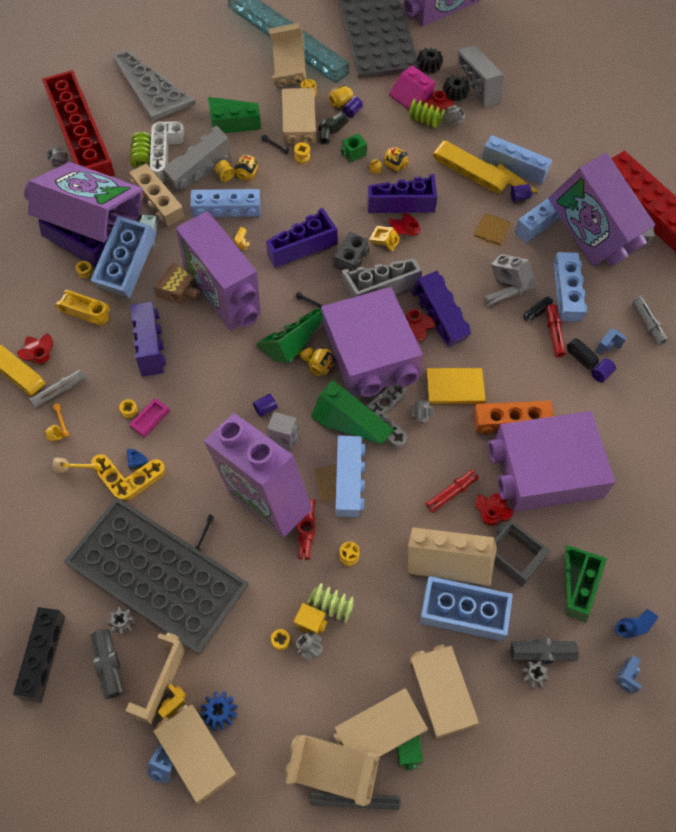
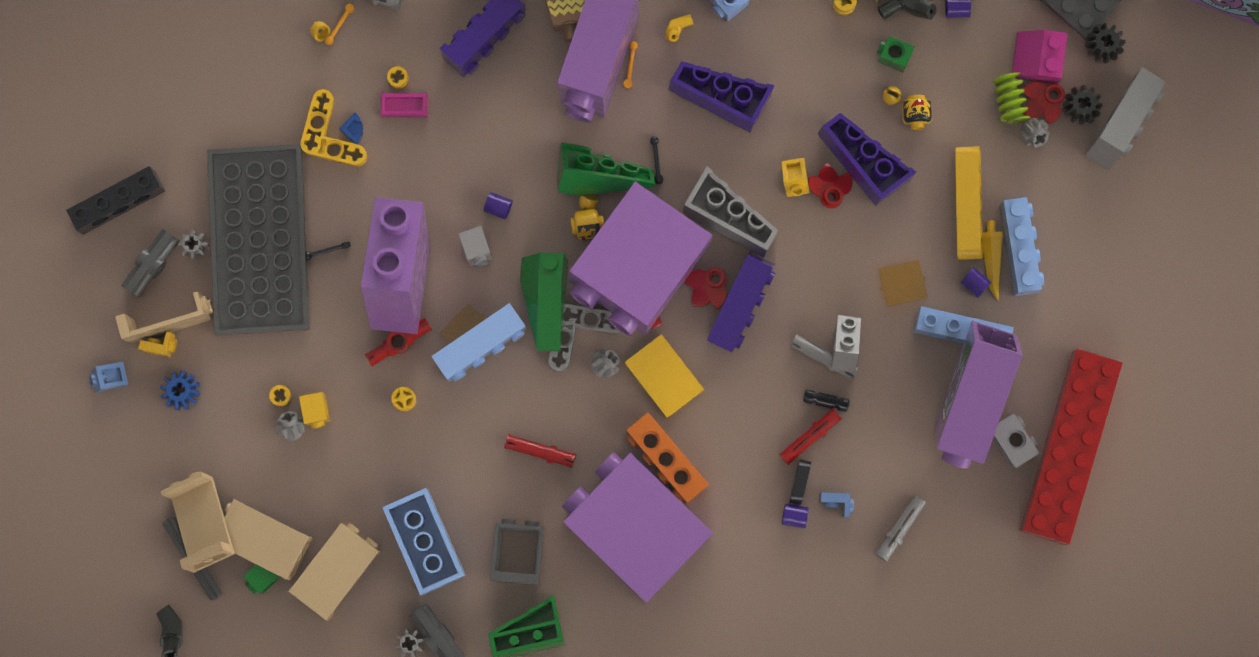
camera: 60 degrees right, 20 degrees up
(61, 465) = (294, 67): hinge -> none
(194, 753) = (131, 396): tan panel -> none
(331, 602) = (344, 416): yellowish green piece -> none
(351, 252) = (744, 150): dark grey brick -> none
(451, 556) = (463, 495): tan slope -> none
(493, 506) = (553, 500): red plate -> none
(569, 287) = (905, 390): light blue brick -> none

